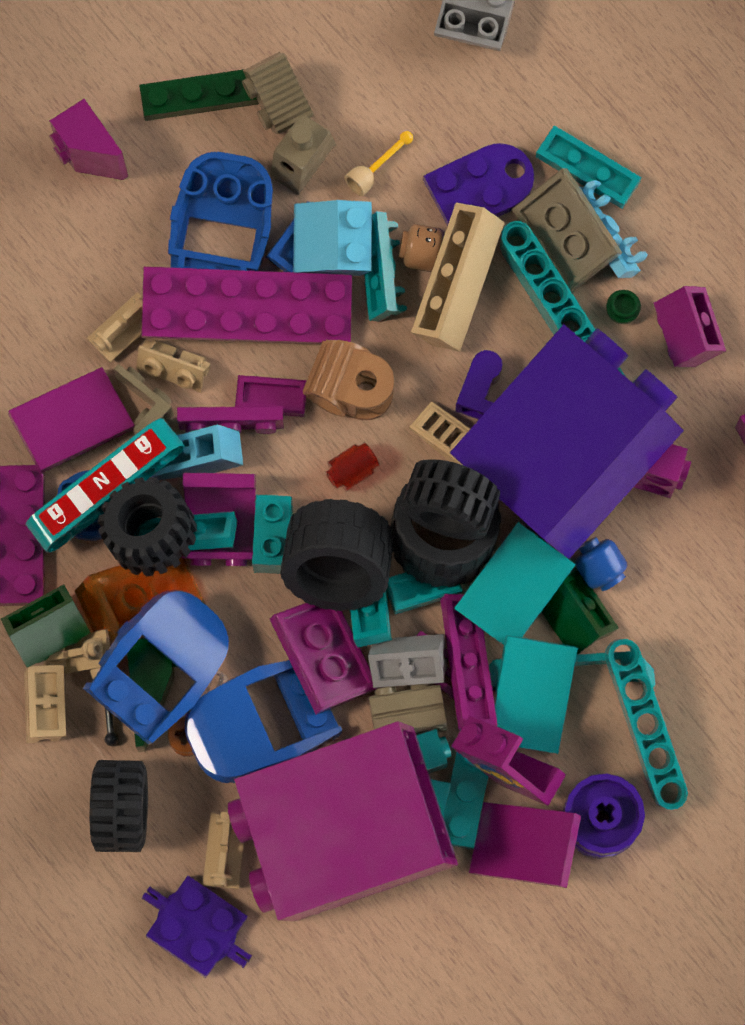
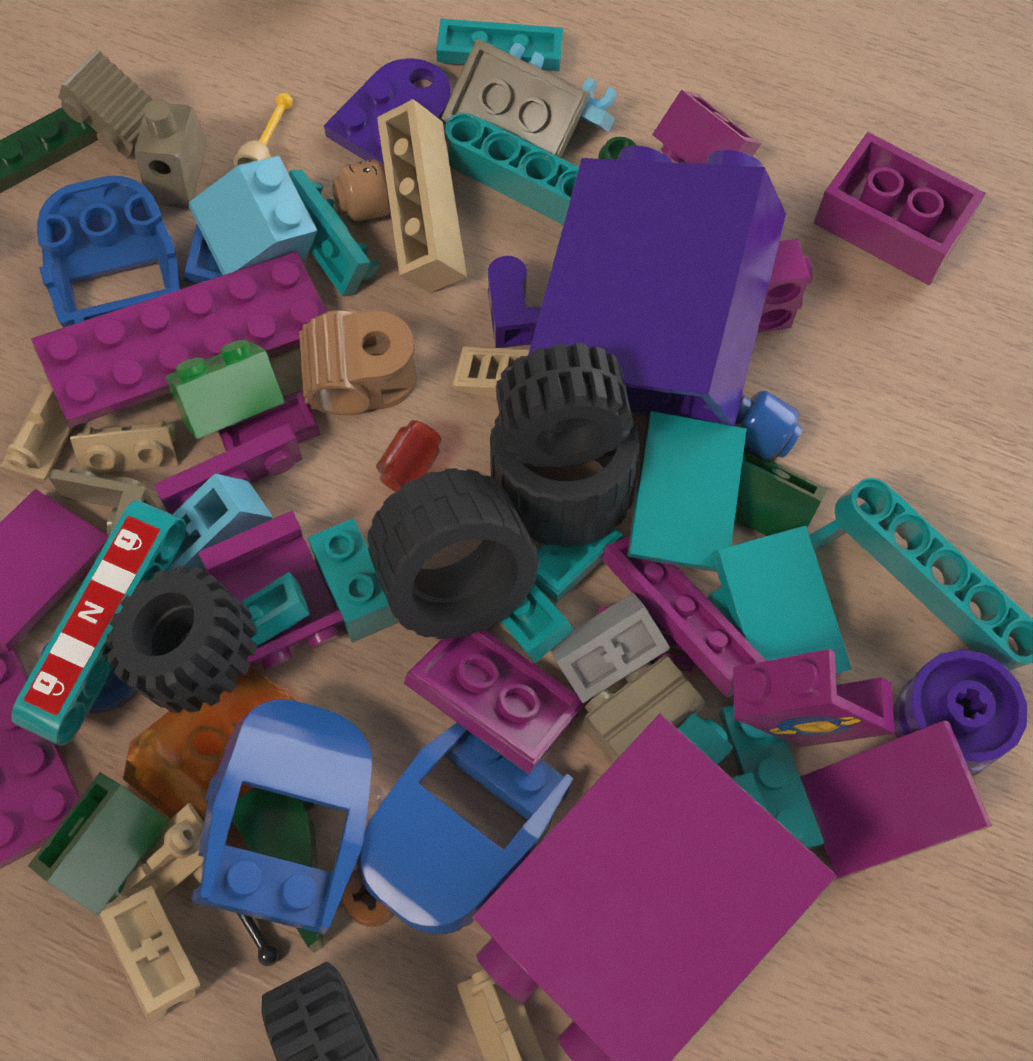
camera: 30 degrees left, 10 degrees down
(253, 359) = (224, 387): none -> green brick

